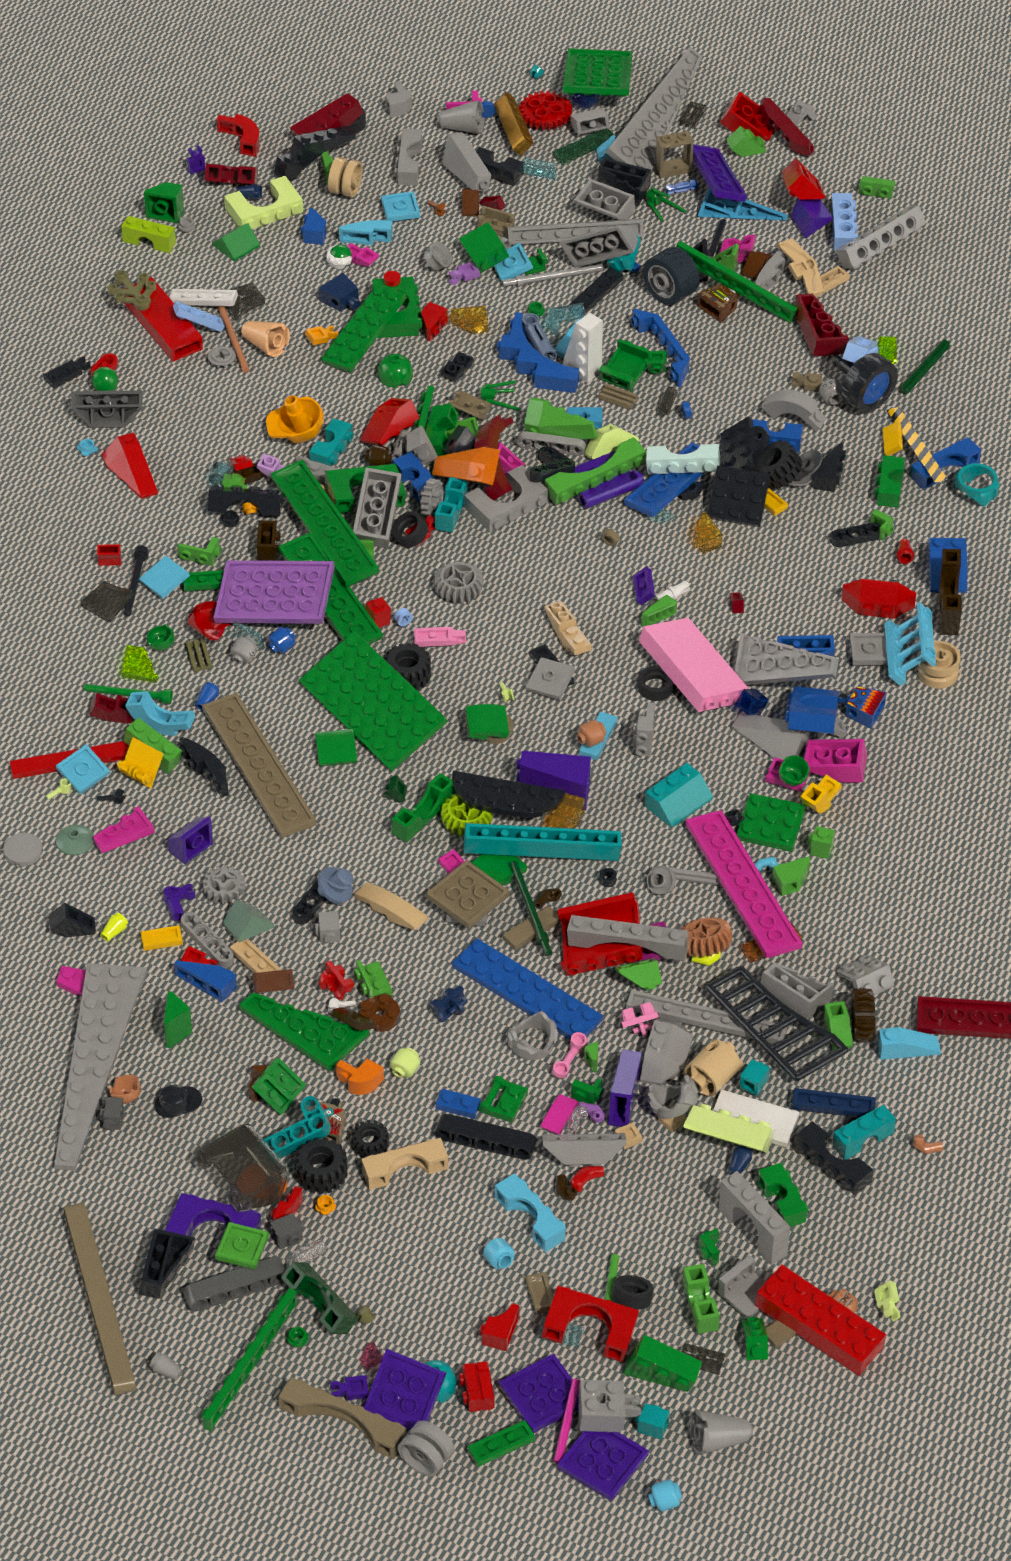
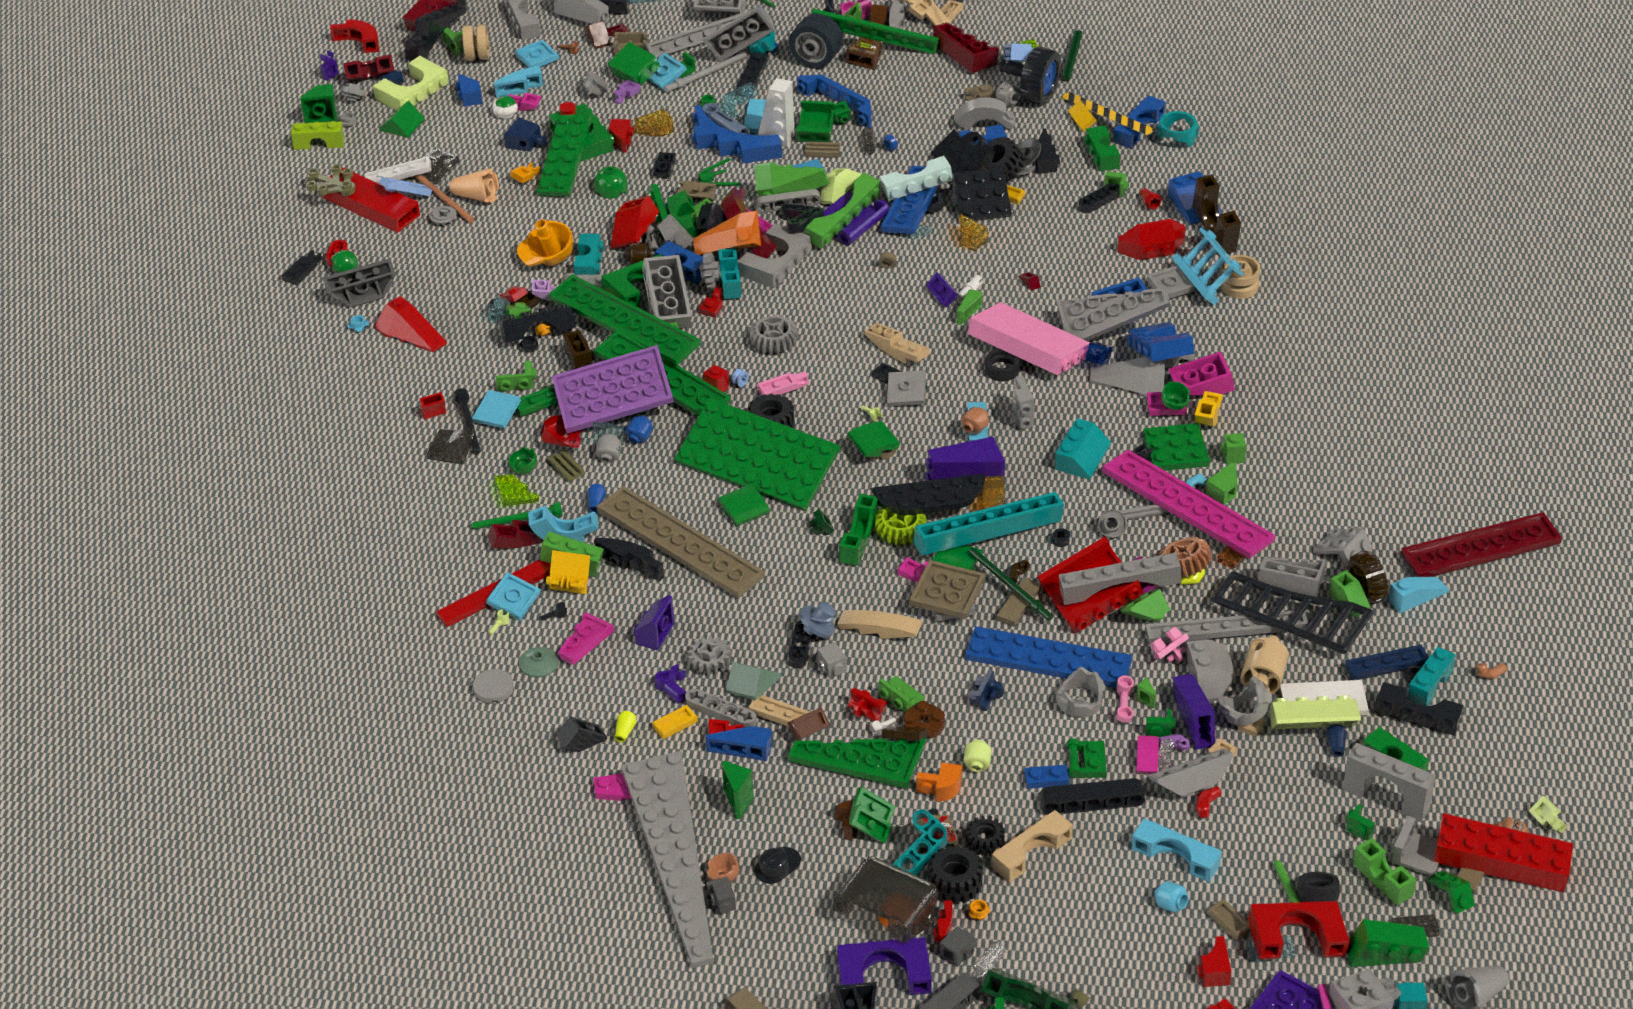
camera: 20 degrees left, 5 degrees down
(205, 196) = (353, 92): none -> light grey plate
(242, 1245) = (927, 973): bright green tile -> none
(416, 536) = (710, 312): black tyre -> none
(562, 1189) = (1191, 820): dark brown arm -> none
(754, 1077) = (1305, 662): teal brick -> none
(864, 705) = (1198, 325): blue torso -> none

